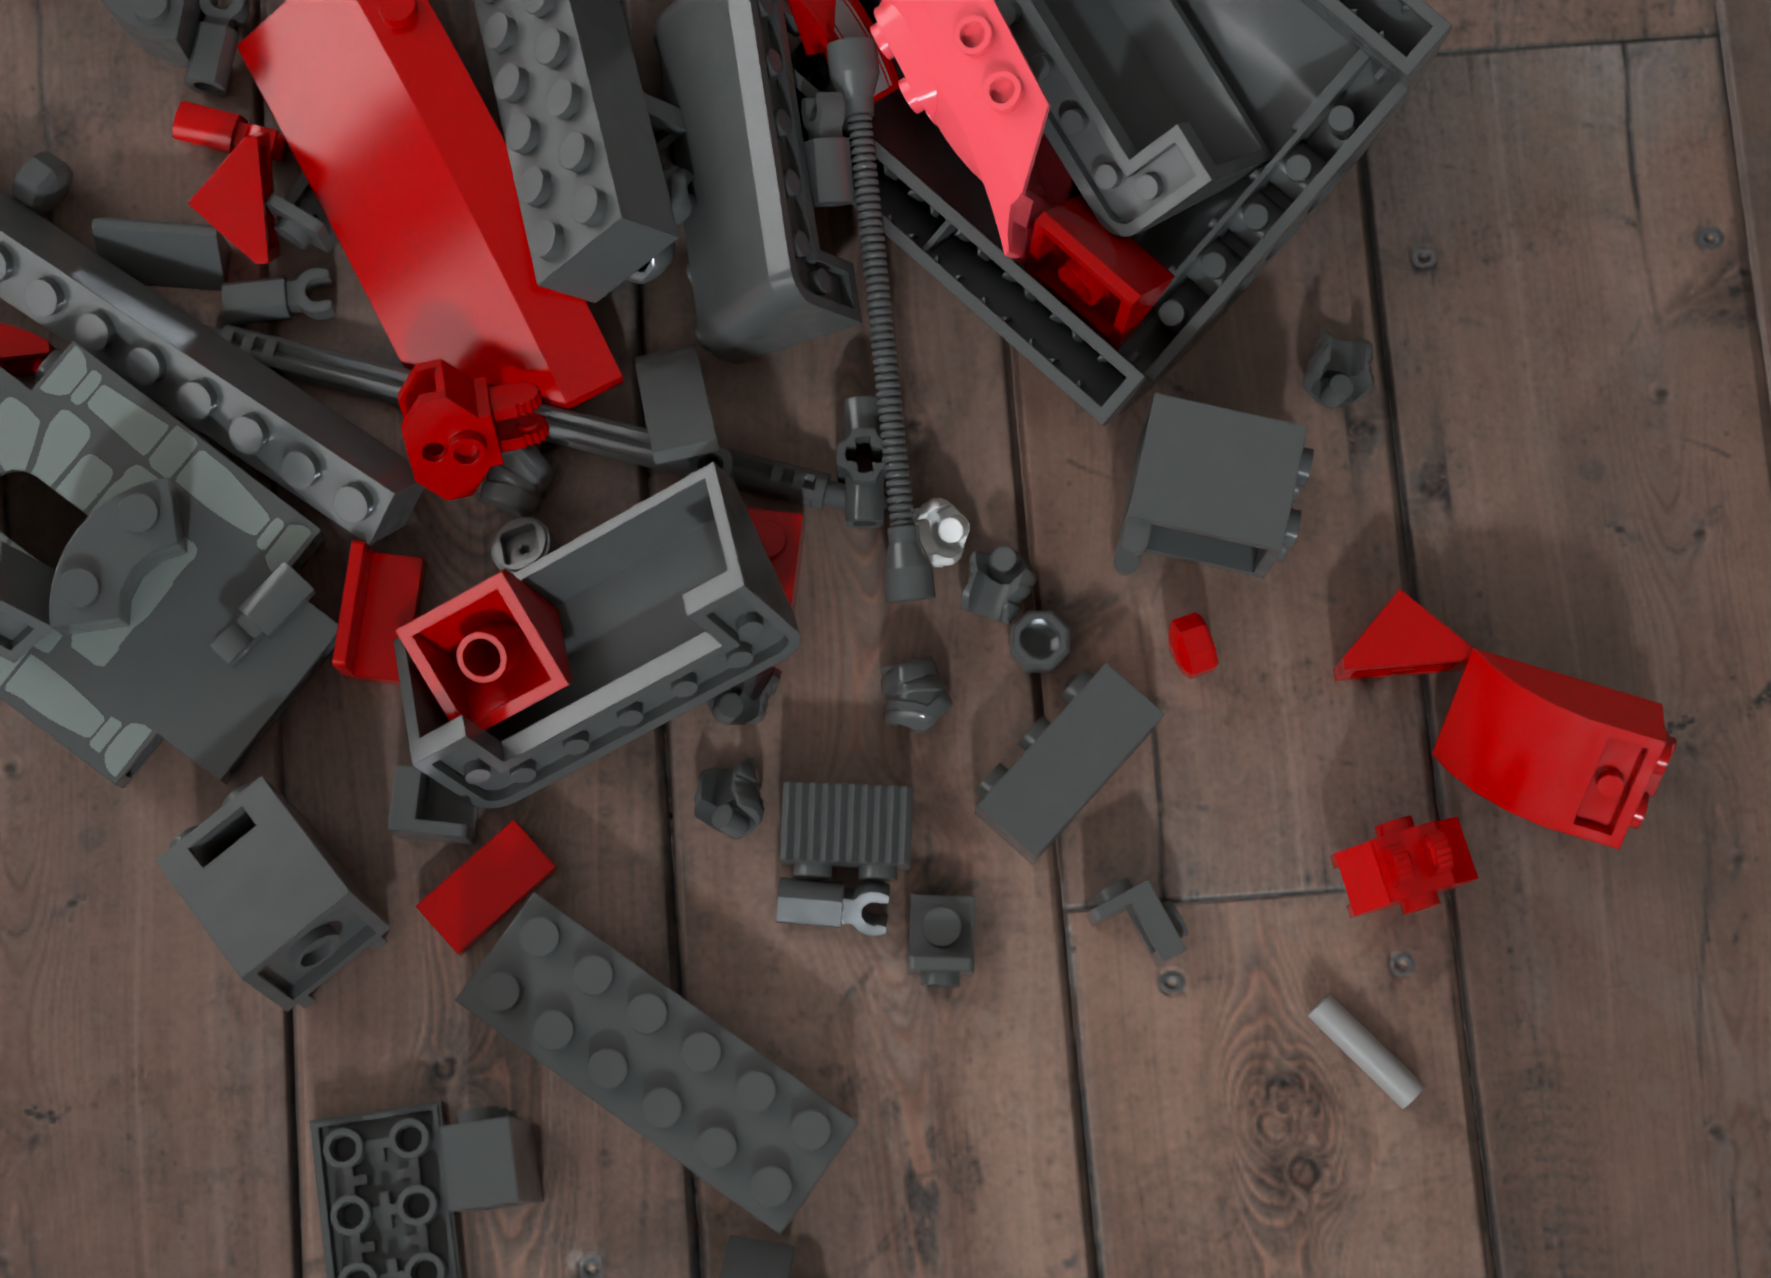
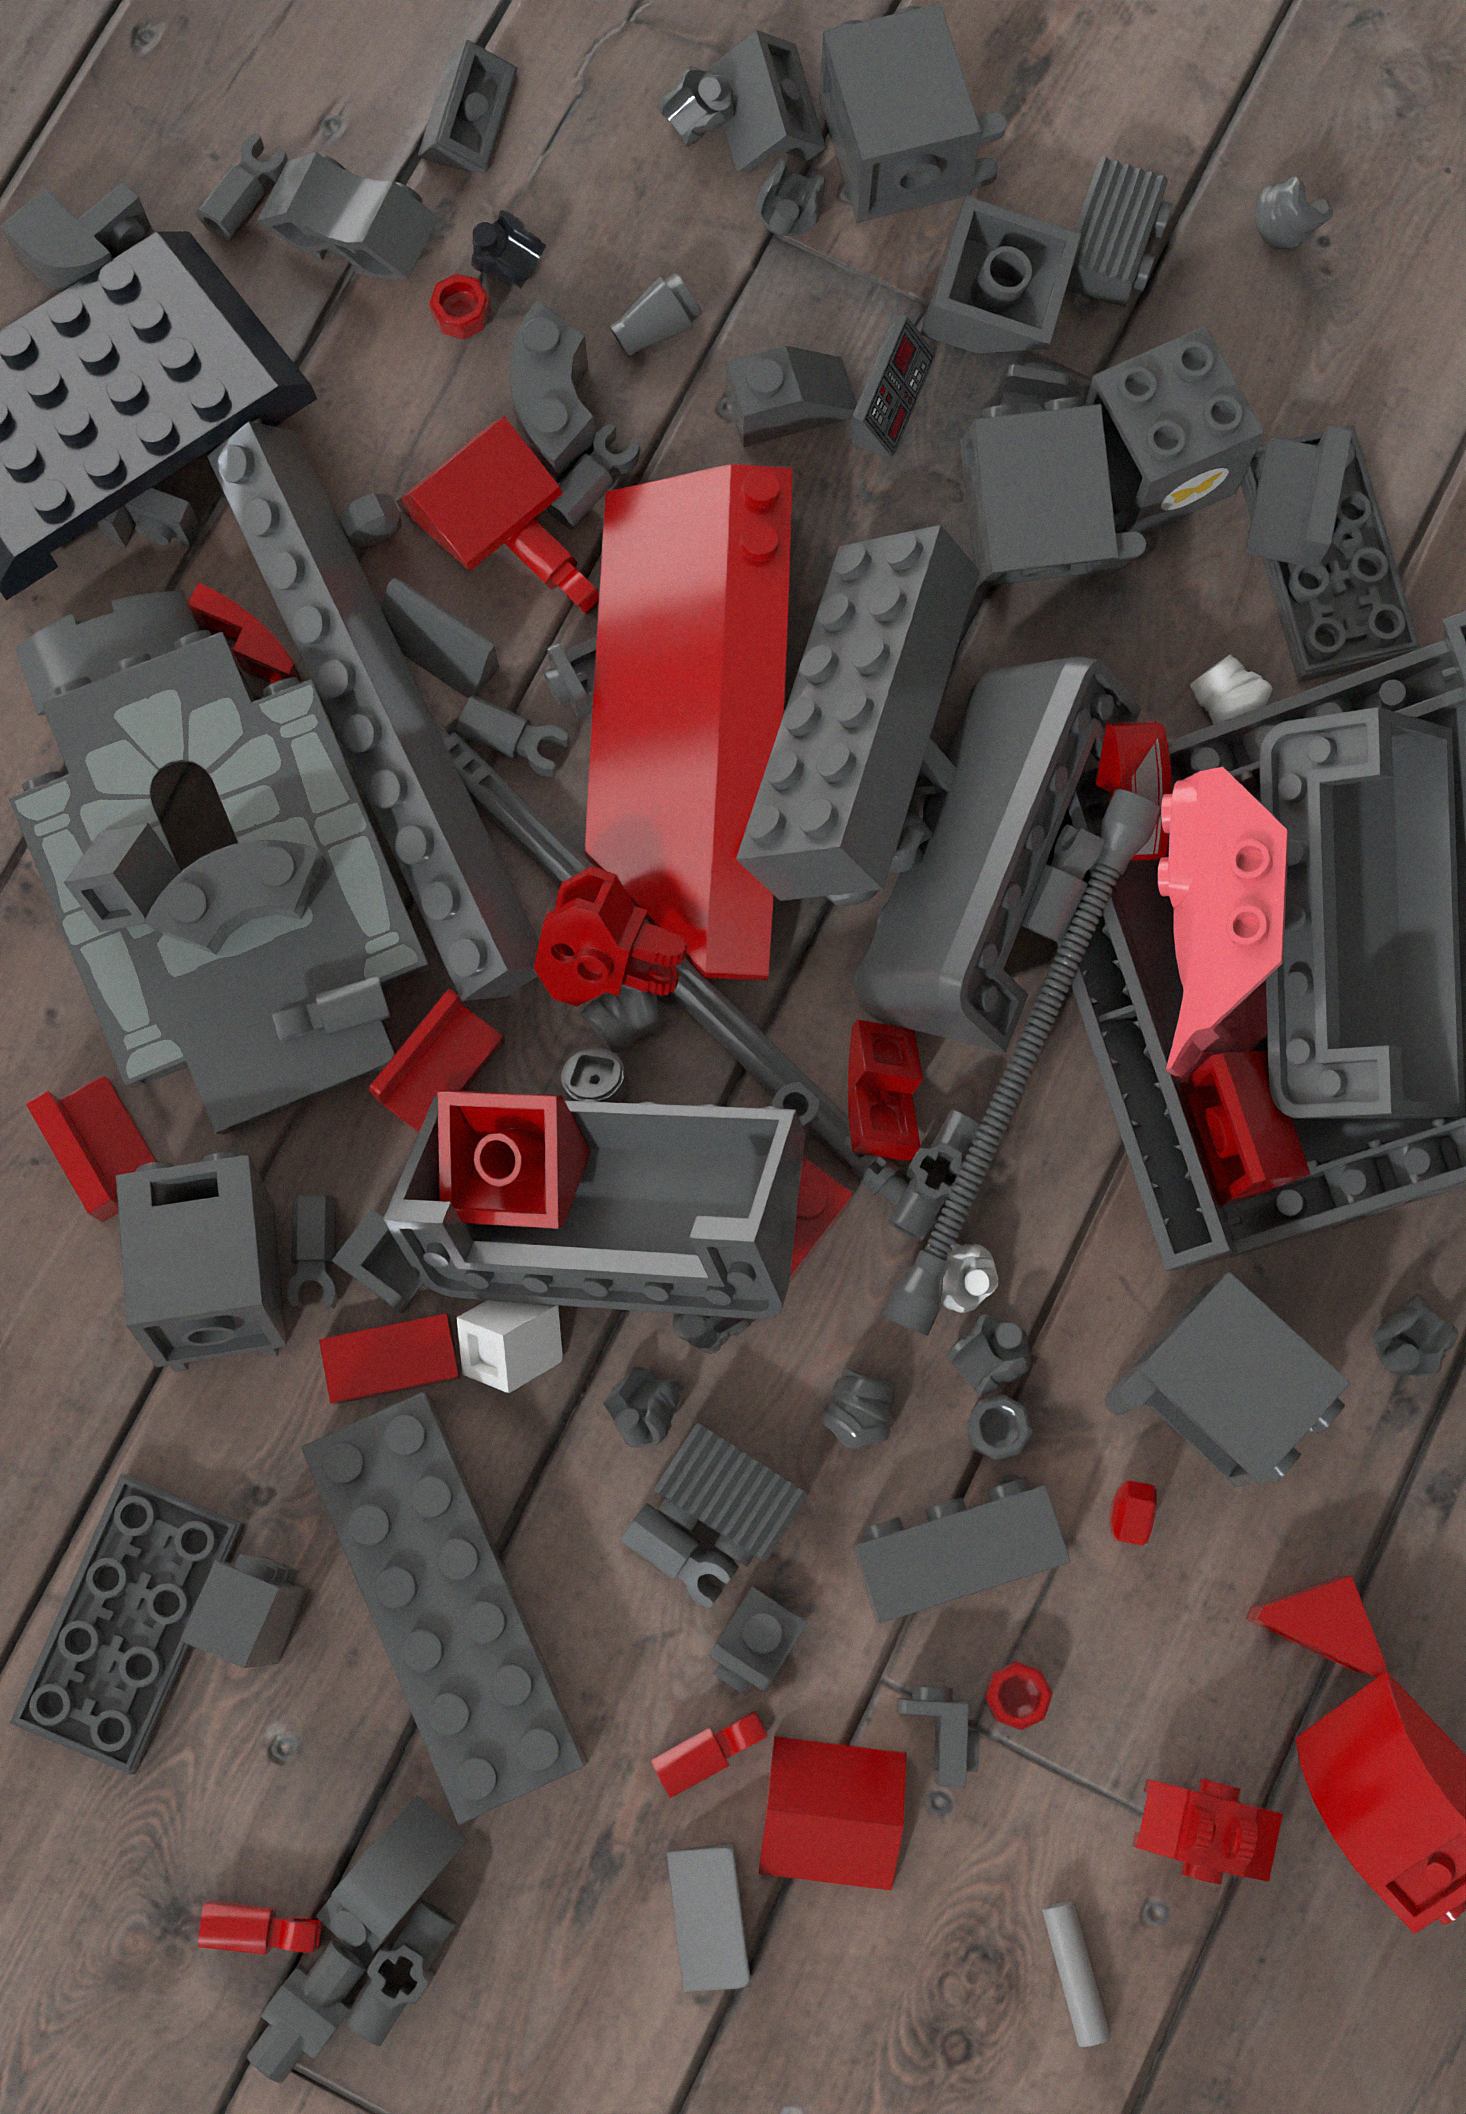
camera: 30 degrees right, 0 degrees up
(115, 855) = (92, 1142): none -> red panel
(128, 105) = (481, 494): none -> red slope
(237, 197) = (525, 629): red slope -> none
(363, 831) = (313, 1247): none -> dark grey bar
(582, 812) = (509, 1342): none -> white panel
(675, 404) = (797, 1032): dark grey slope -> none
(773, 415) = (881, 1082): none -> red slope
(953, 1055) = (705, 1753): none -> red bar
(1036, 1189) = (708, 1918): none -> slope
(1089, 1041) = (833, 1813): none -> red slope
(1185, 852) = (1018, 1695): none -> red tile

